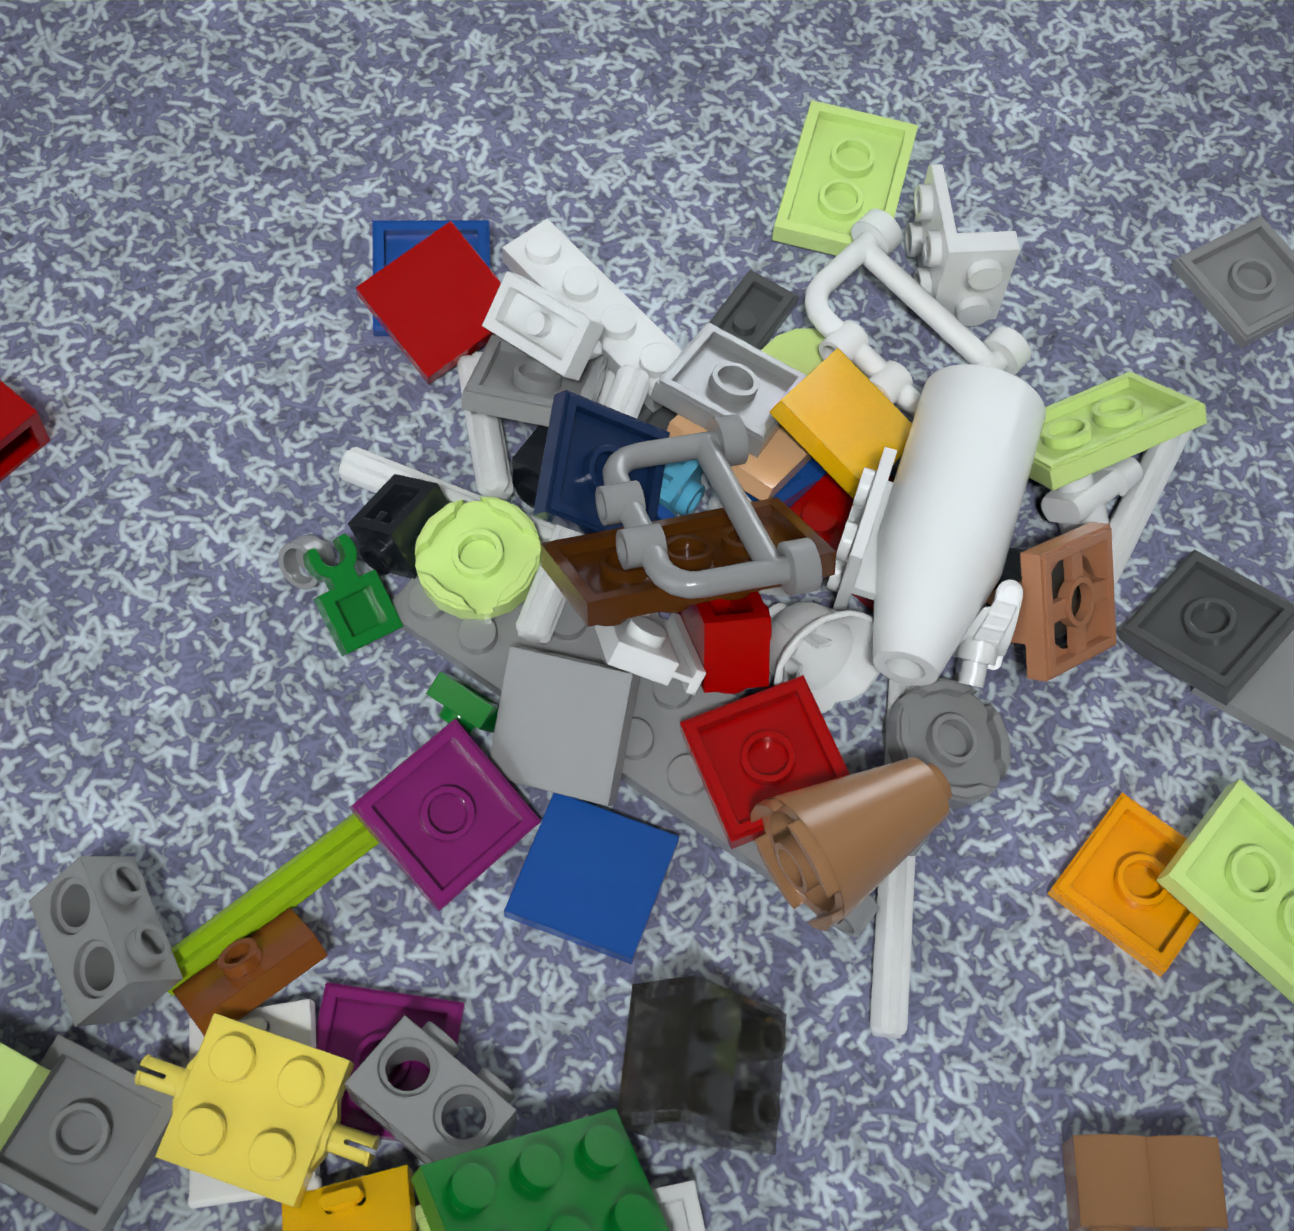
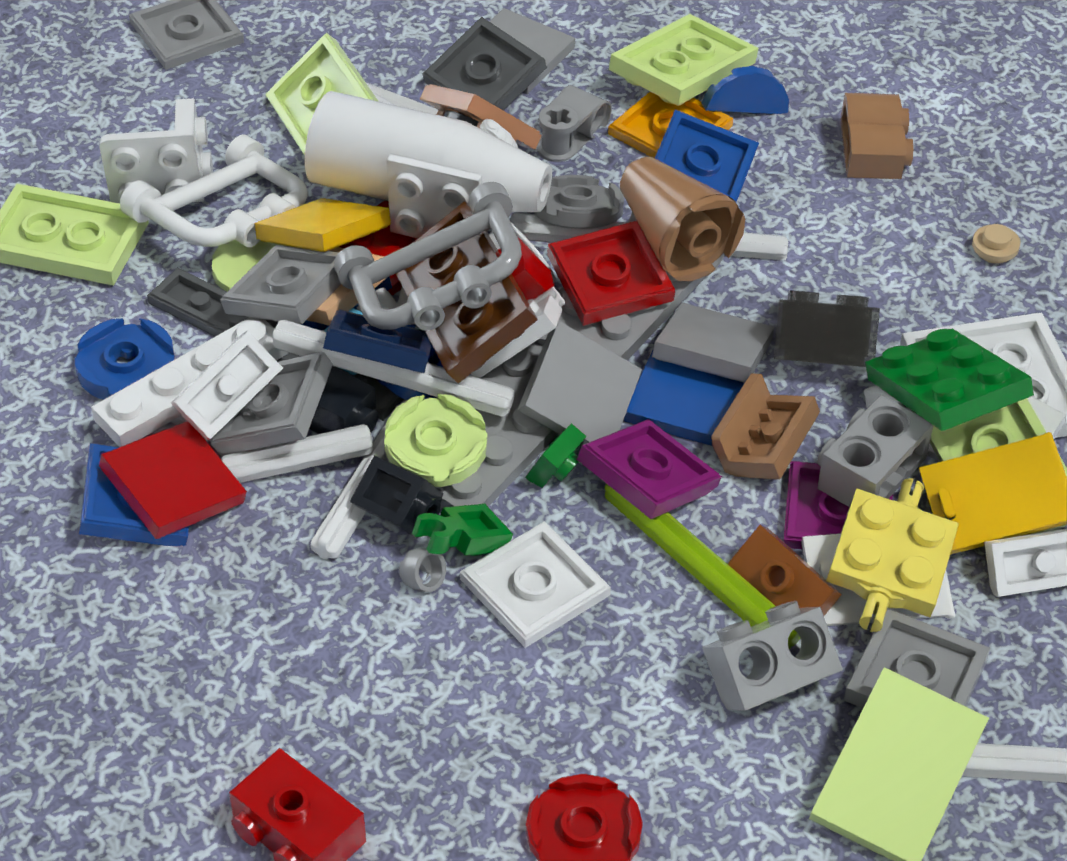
camera: 85 degrees left, 15 degrees down
(284, 685) = (535, 584): none -> white tile
(508, 964) = (762, 430): none -> medium nougat bracket
(663, 232) = (111, 339): none -> blue plate
(674, 907) = (713, 342): none -> light grey tile
(1051, 918) = (707, 153): none -> blue tile
(1120, 737) = (571, 123): none -> light grey piece
(1212, 992) = (748, 91): none -> blue tile

